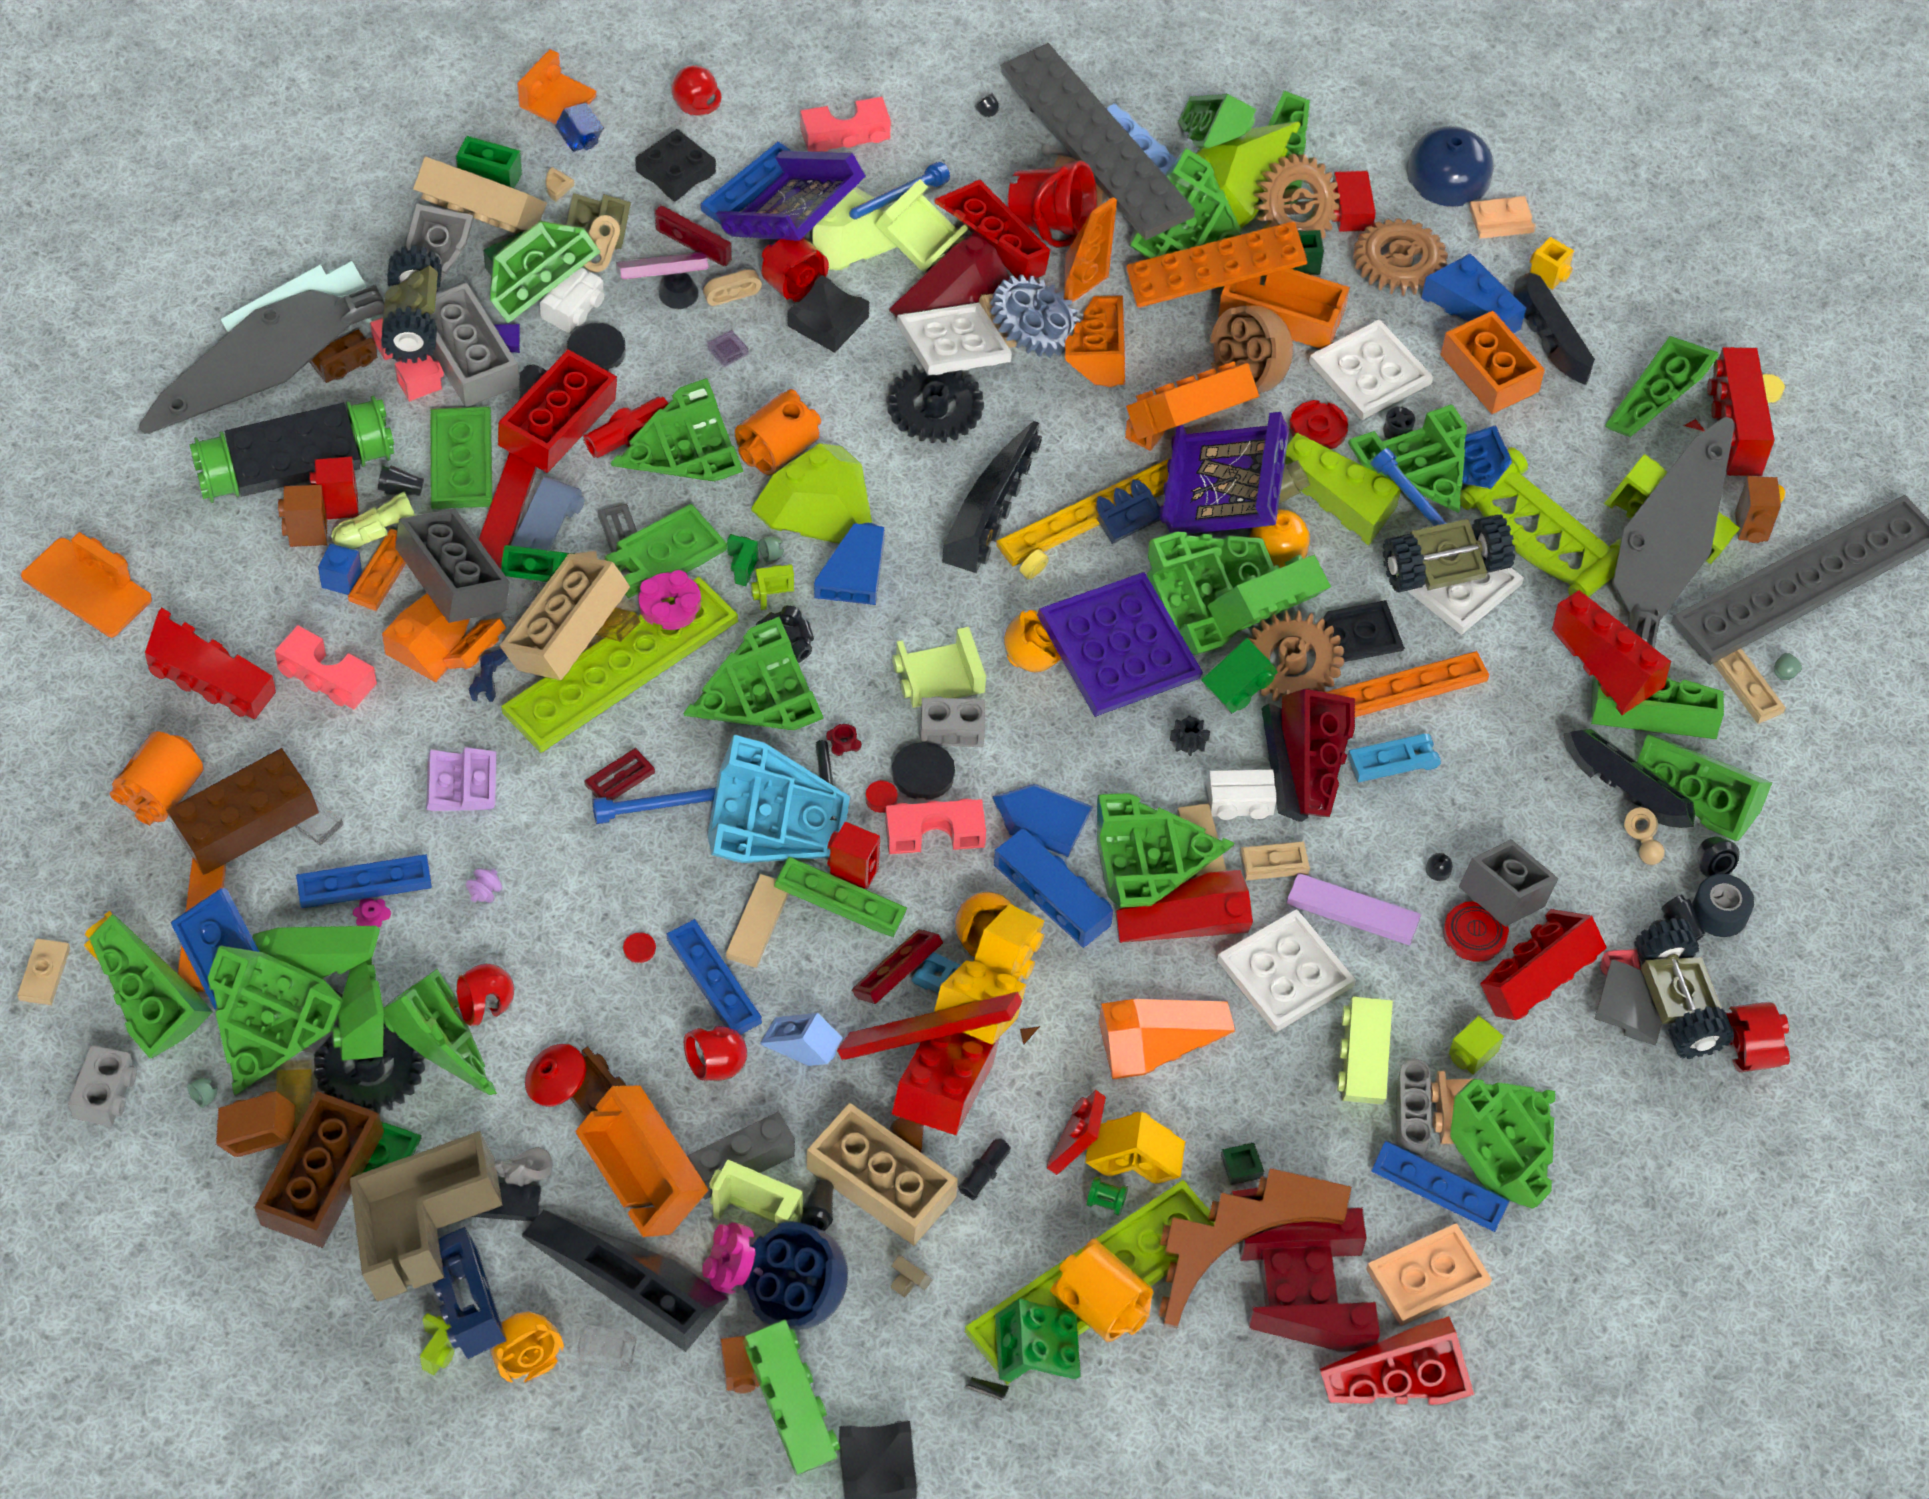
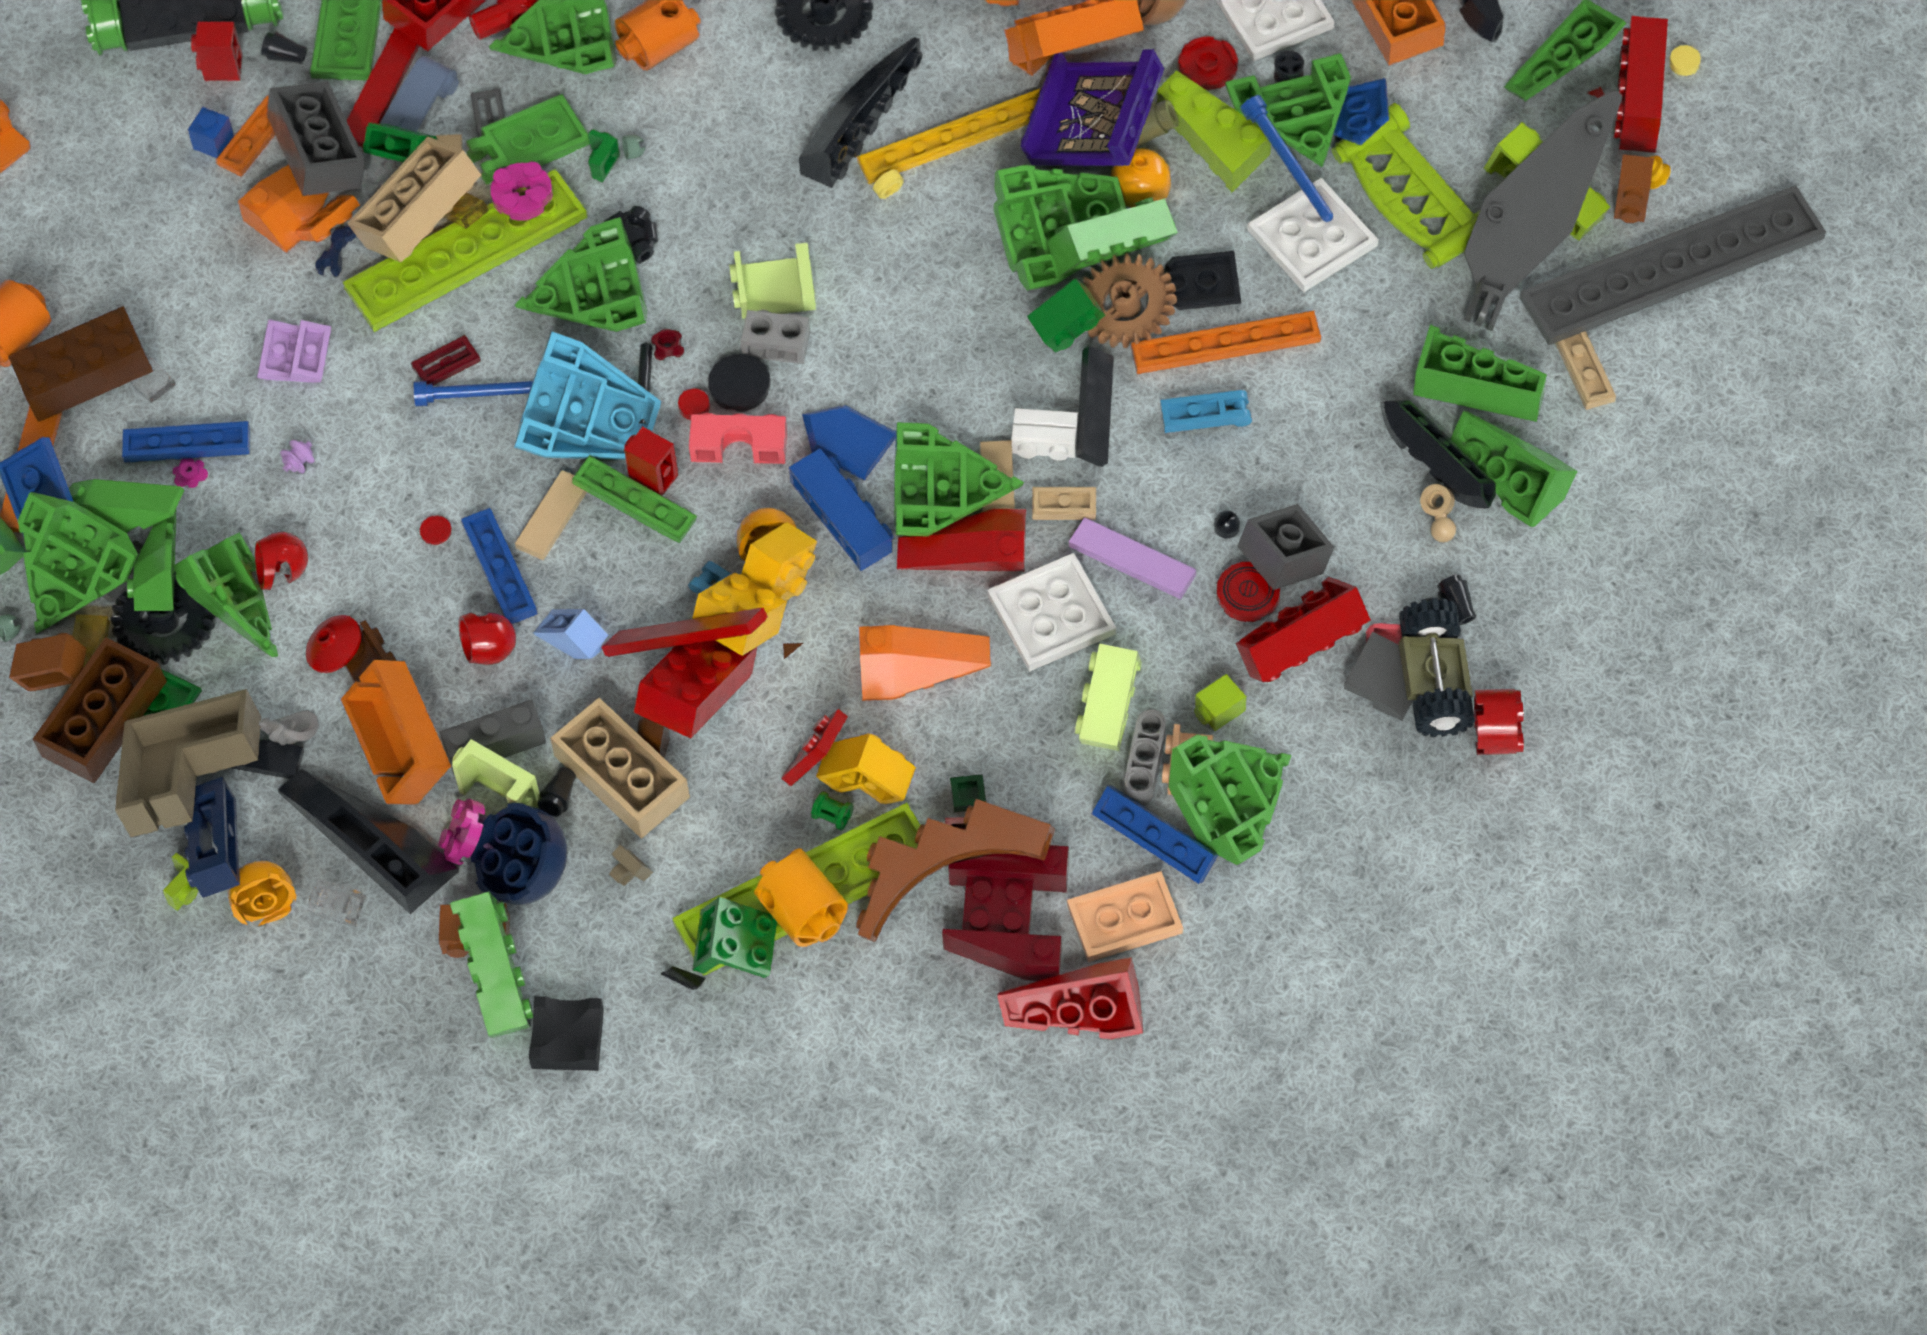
camera: 15 degrees right, 5 degrees up
(206, 668) = (69, 221): red wedge -> none
(304, 515) = (183, 76): dark orange piece -> none
(344, 682) = (198, 245): coral arch -> none
(371, 524) = (249, 89): yellowish green piece -> none
(772, 581) = (625, 179): lime bracket -> none
(816, 495) = (691, 98): lime wedge -> none
(854, 567) = (708, 172): blue slope -> none
(897, 966) = (675, 571): dark red tile -> none
(984, 1169) = (721, 773): black axle -> none
(1029, 644) = (868, 263): light orange cylinder -> none
(1119, 644) = (953, 272): dark purple plate -> none
(1129, 513) = (993, 140): dark blue plate -> none
(1189, 735) = (1006, 370): black gear -> none
(1316, 738) = (1128, 389): dark red wedge -> none
(1448, 553) = (1300, 209): plate -> none
(1610, 651) = (1438, 326): red wedge -> none
(1717, 856) = (1505, 541): black cone -> none
(1723, 905) = (1499, 589): black wheel -> none
(1787, 667) = (1627, 355): sand green hinge -> none

